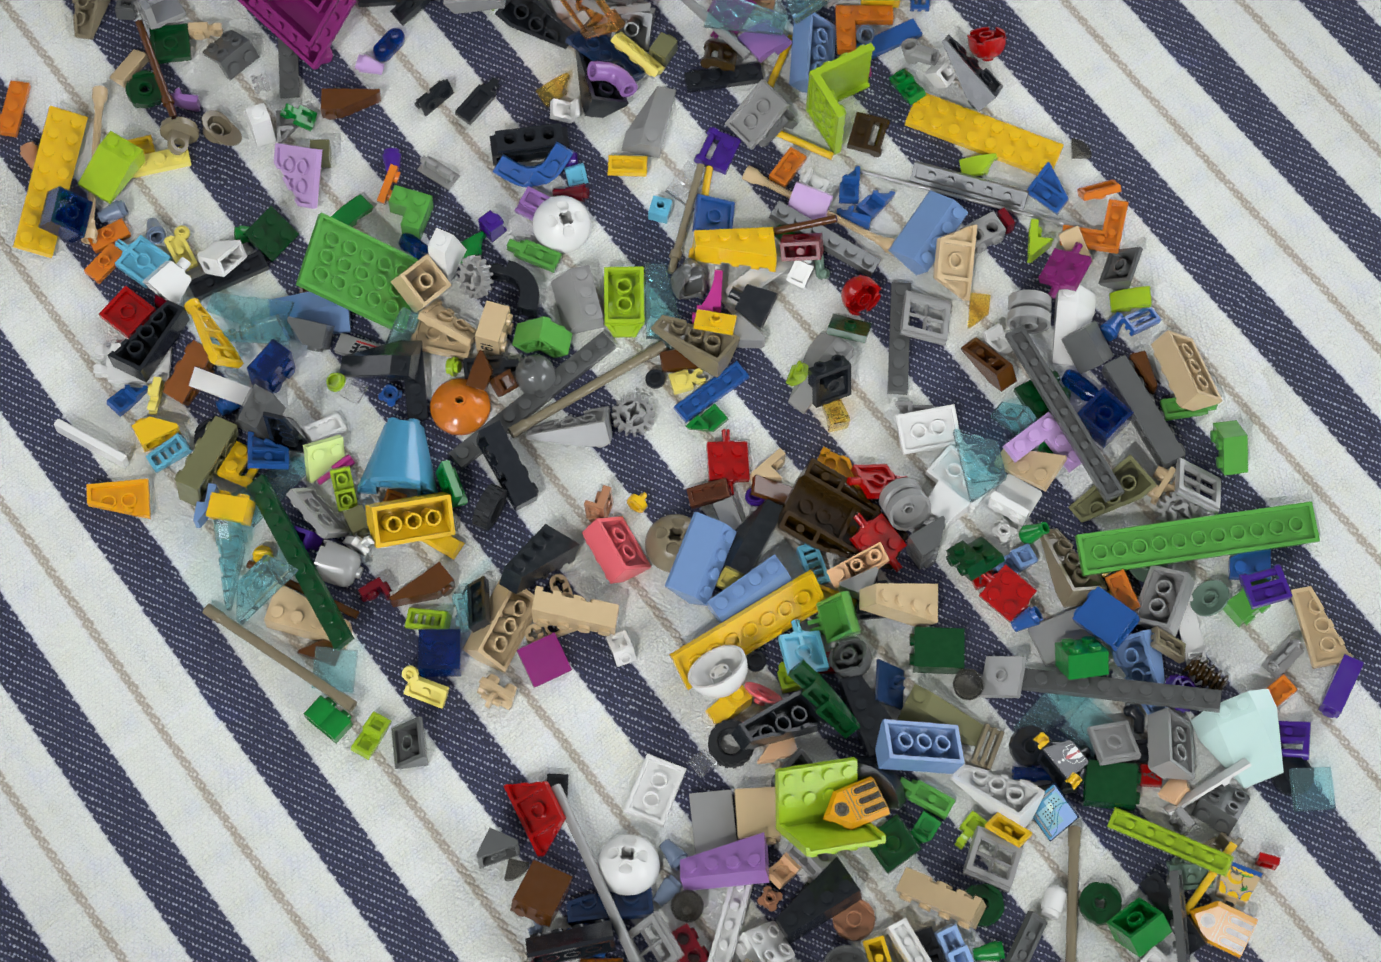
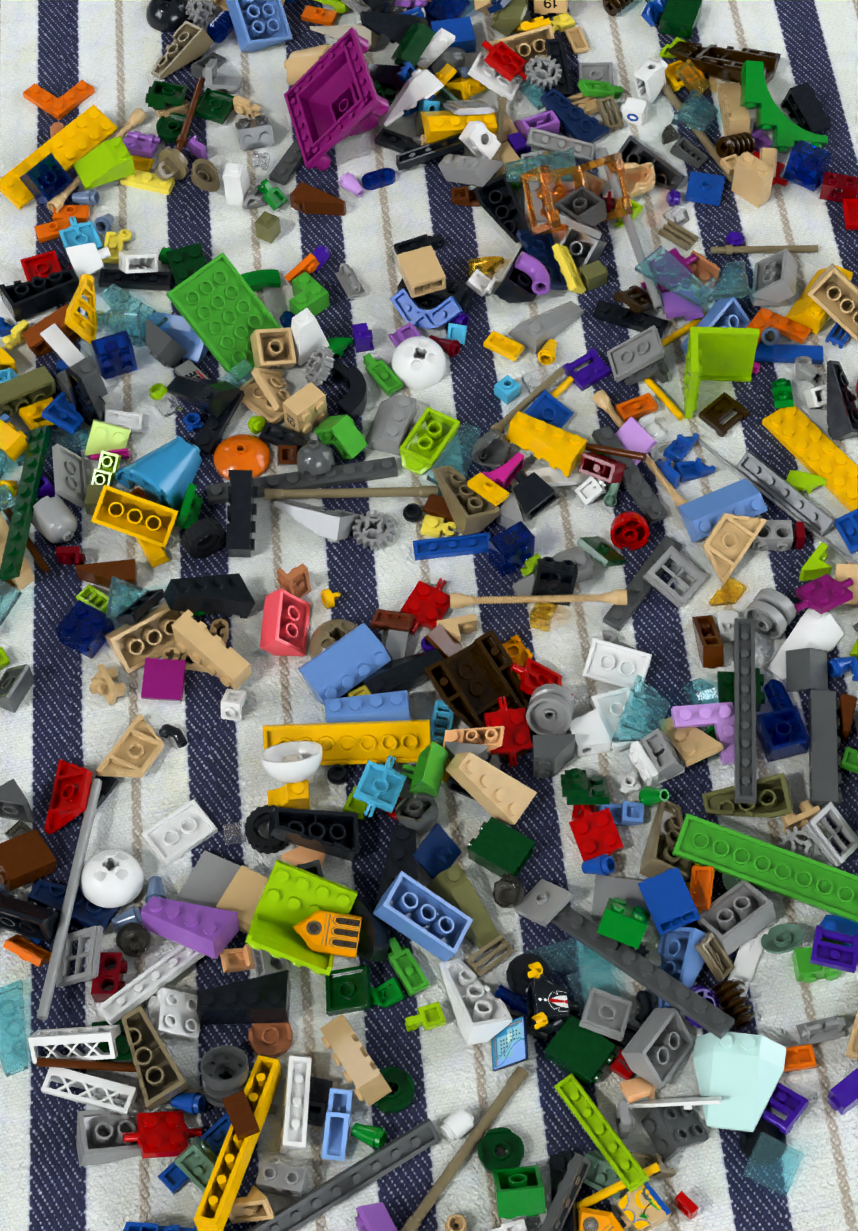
camera: 35 degrees right, 10 degrees down
(114, 57) = (162, 93): none -> dark green plate
(129, 128) = (142, 144): none -> medium lavender plate
(301, 172) = (244, 226): lavender plate -> none
(358, 544) = (83, 515): white plate -> none
(424, 689) = (53, 650): light yellow hinge -> none
(438, 94) = (386, 229): black hinge -> none
(480, 372) = (271, 436): reddish brown slope -> none
(486, 23) = (464, 197): none -> reddish brown slope
(511, 131) = (421, 271): none -> tan brick
(565, 741) = (133, 752): none -> tan wing
(587, 703) = (176, 733): none -> black arm
(673, 153) = (548, 352): none -> yellow cone
(709, 420) = (434, 567): green slope -> none
(762, 694) = (320, 799): coral dish -> none
(768, 892) = (214, 980): nougat plate -> none
(771, 368) = (511, 549): none -> clear blue brick
(828, 703) = (369, 837): dark green slope -> none
(890, 366) = (615, 597): none -> tan hose
(986, 876) = (443, 1041): light grey piece -> none
(1008, 830) = (456, 1034): yellow slope -> none
(1021, 491) = (662, 754): none -> light grey brick

